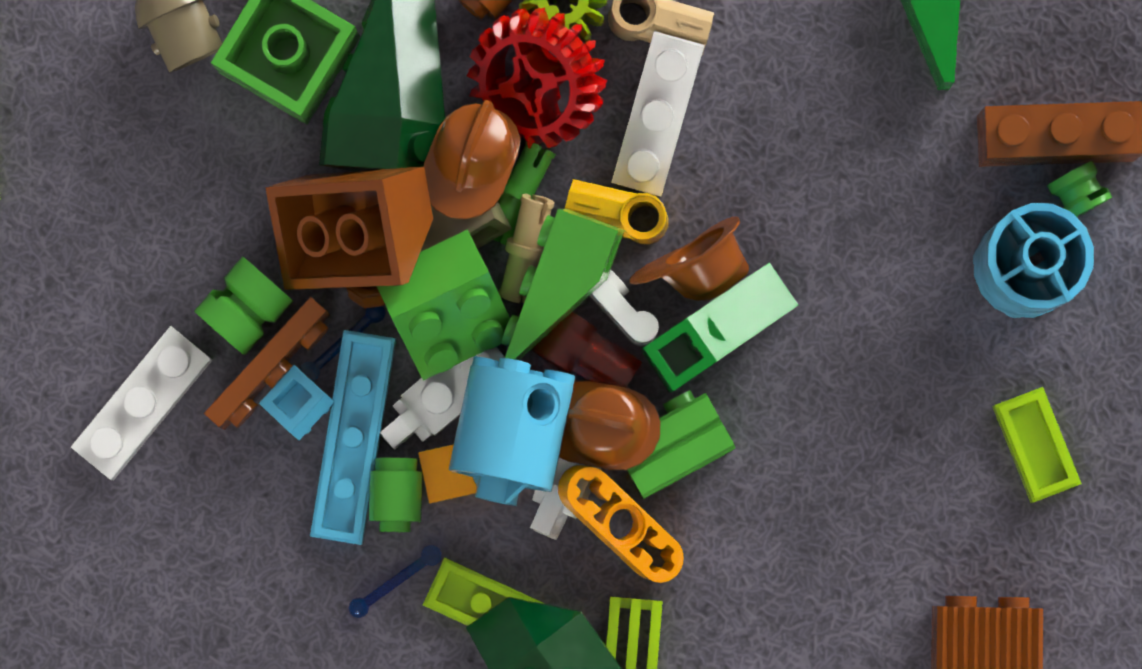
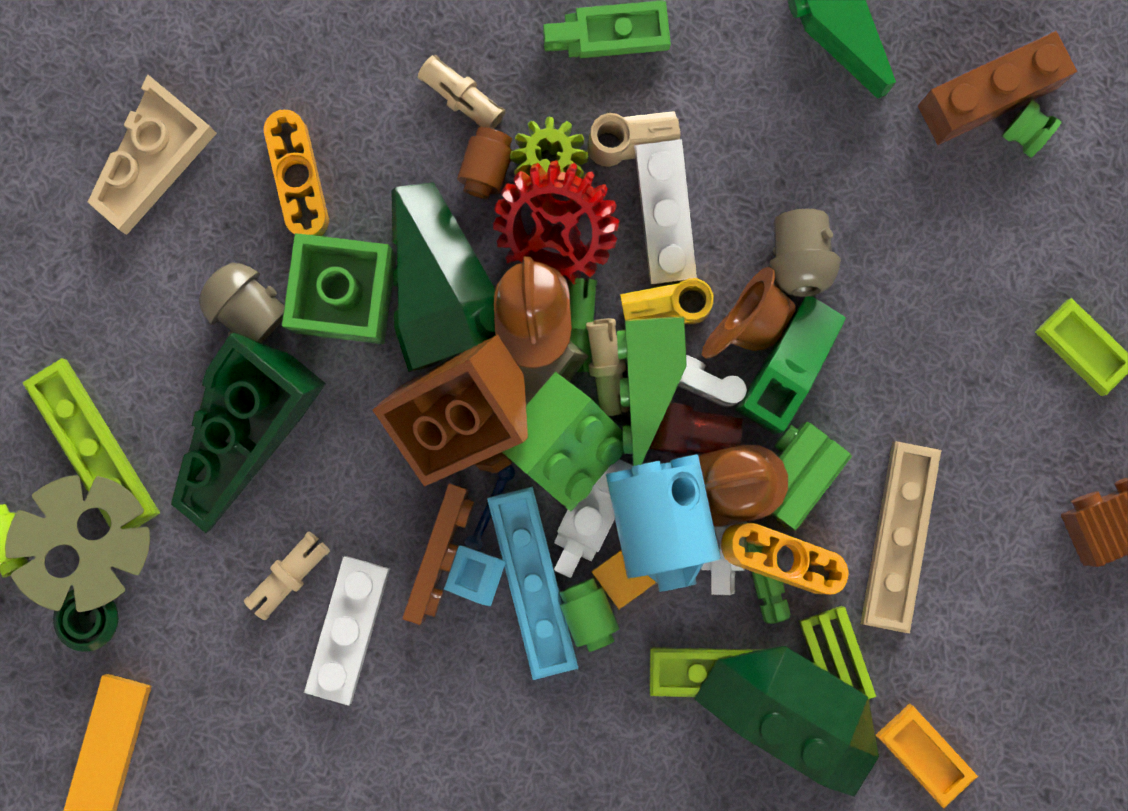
camera: 20 degrees left, 0 degrees up
(104, 320) = (286, 576): none -> tan pin
(133, 136) = (245, 414): none -> dark green wedge
(243, 306) = (396, 515): bright green wheel -> none
(360, 606) = (638, 652): clear blue hinge -> none
(594, 551) = (774, 608): none -> bright green axle
(754, 556) = (900, 537): none -> tan tile
(780, 219) = (804, 253): none -> dark tan piece
(1012, 281) = (1029, 196): medium azure cylinder -> none

